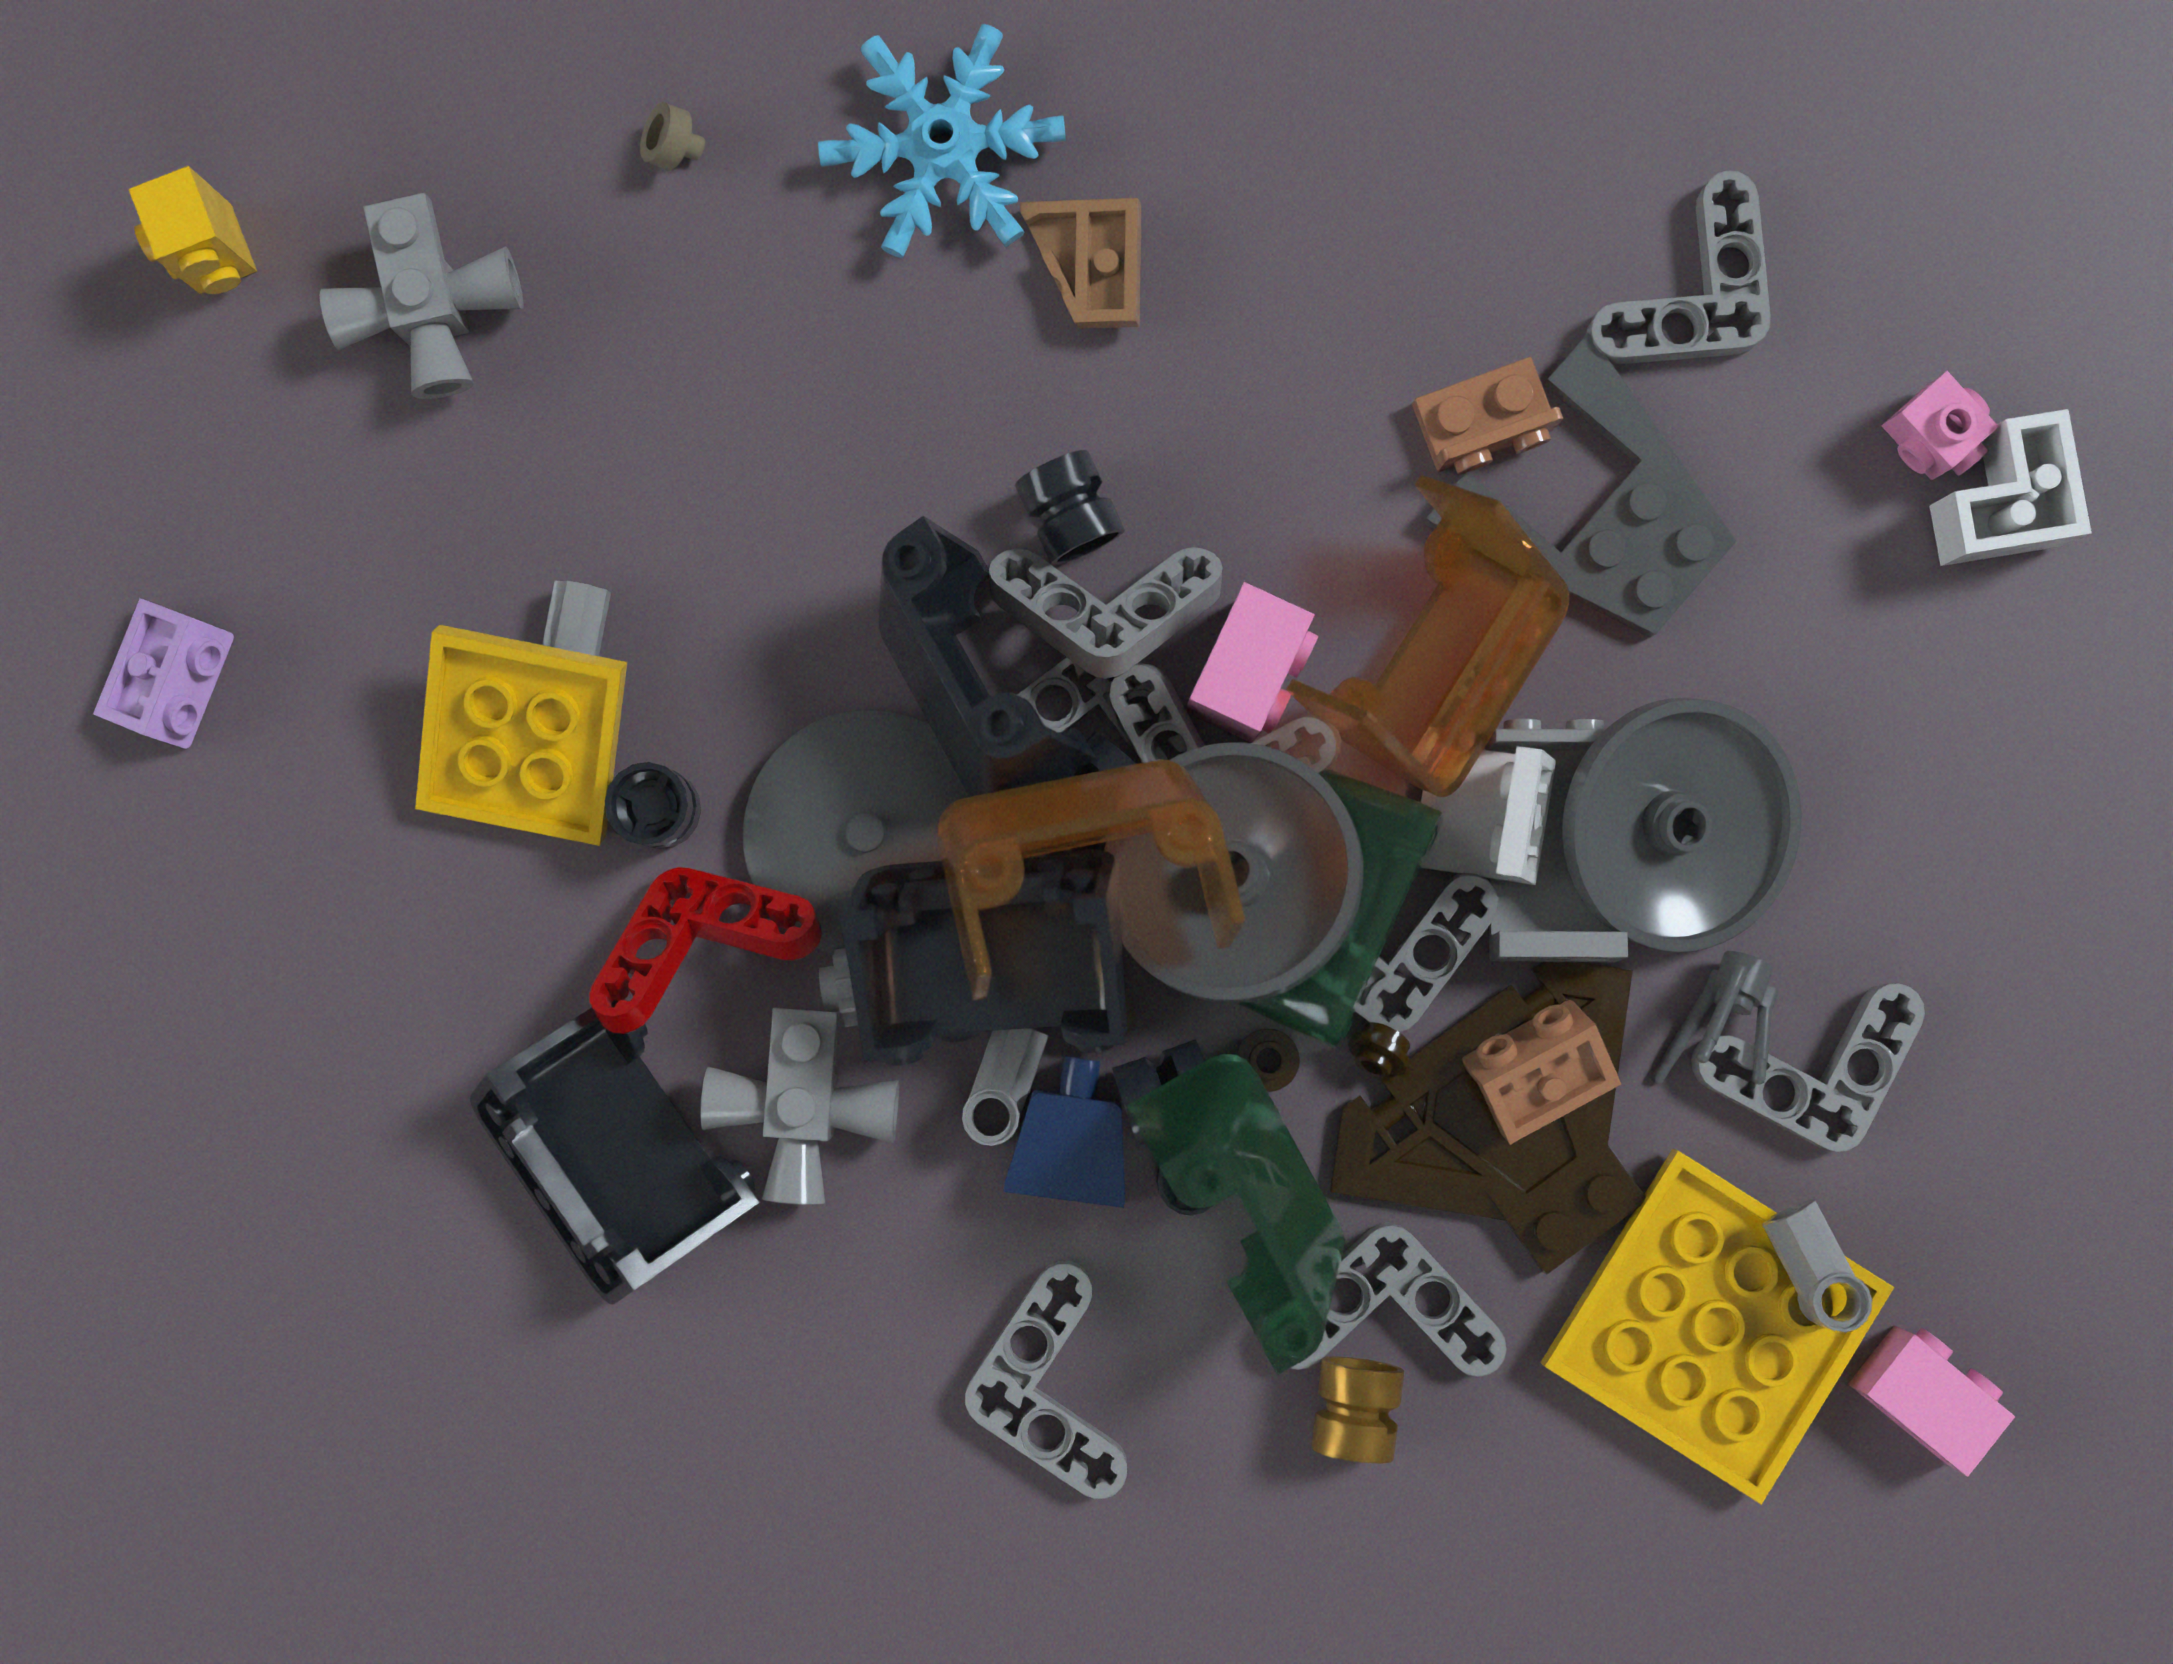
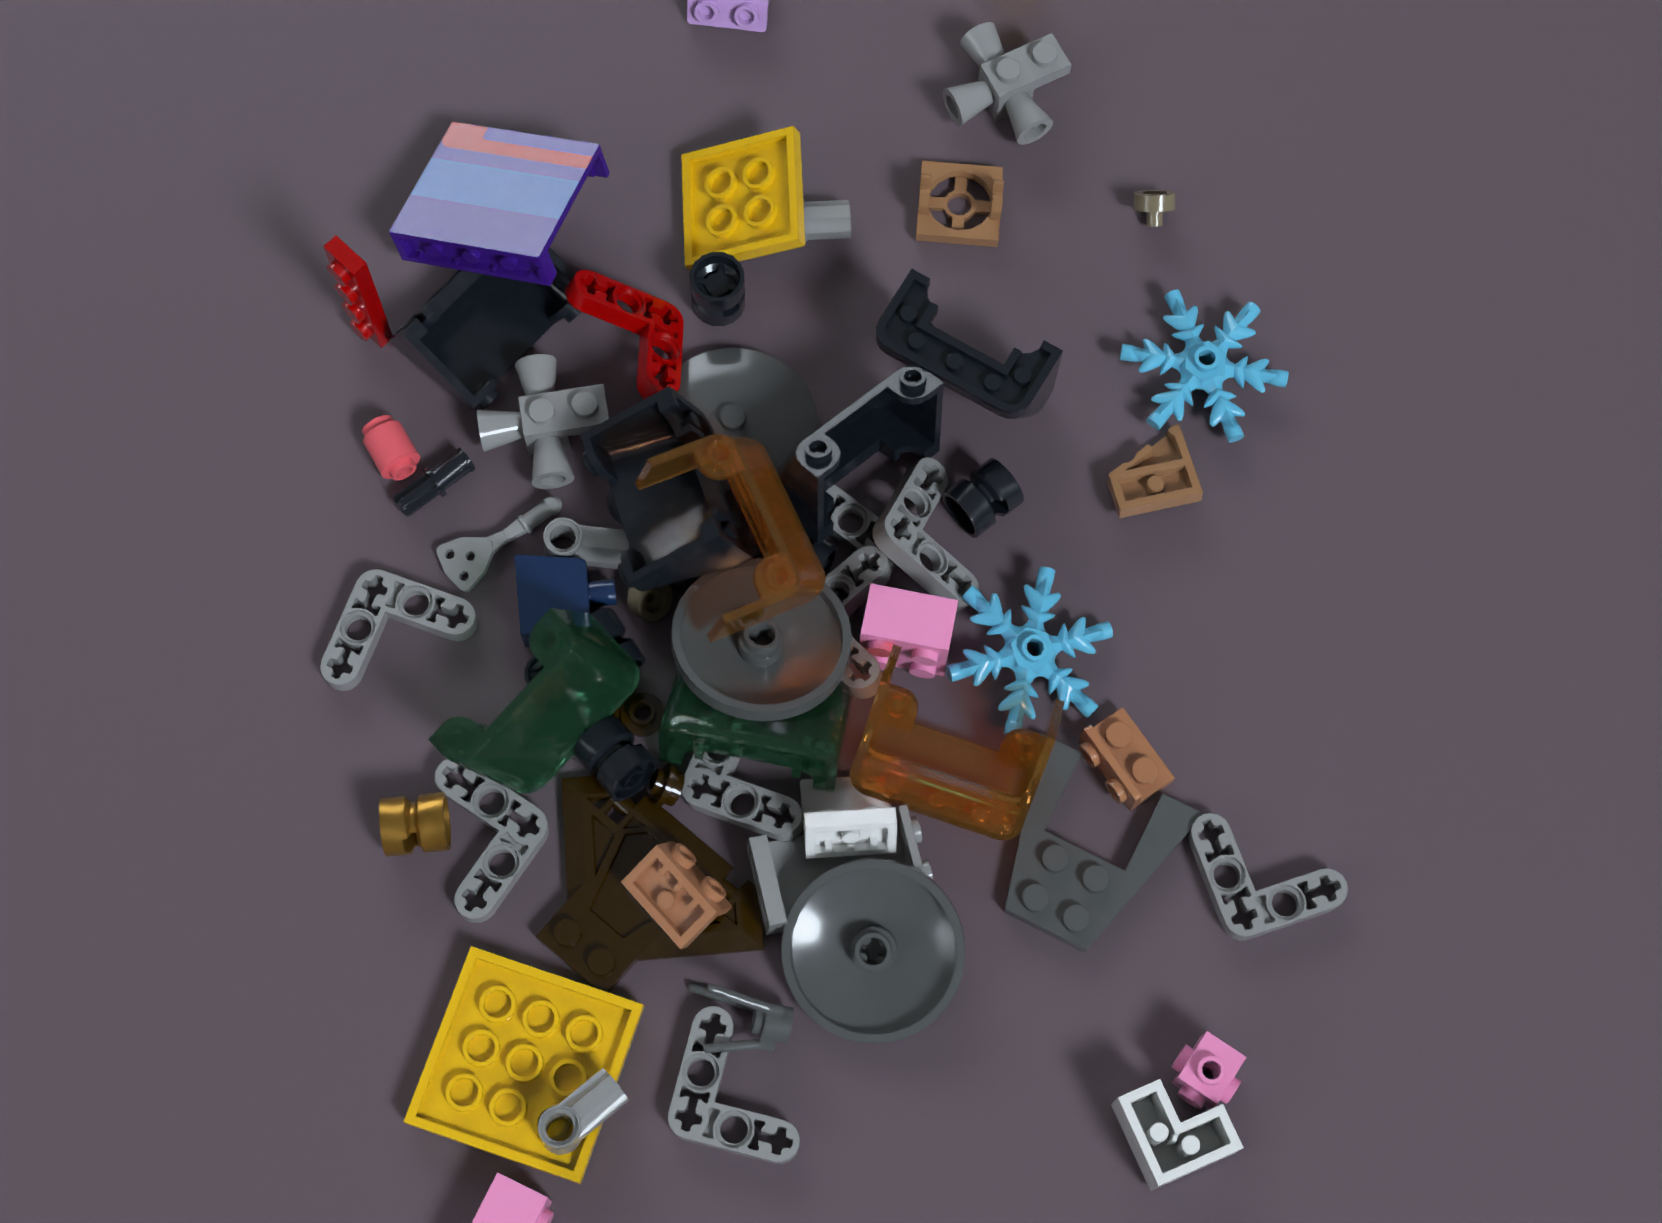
camera: 75 degrees right, 15 degrees down
(438, 1103) = (494, 201): none -> panel
(553, 1348) = (358, 291): none -> red plate
(570, 363) = (981, 235): none -> medium nougat piece
(783, 1335) = (390, 448): none -> coral brick
(850, 1283) = (433, 482): none -> black axle
(943, 433) = (1007, 389): none -> black windscreen
(965, 1226) = (486, 547): none -> light grey piece
(1302, 520) = (1015, 653): none -> medium azure piece
(1334, 1113) = (610, 753): none -> black wheel

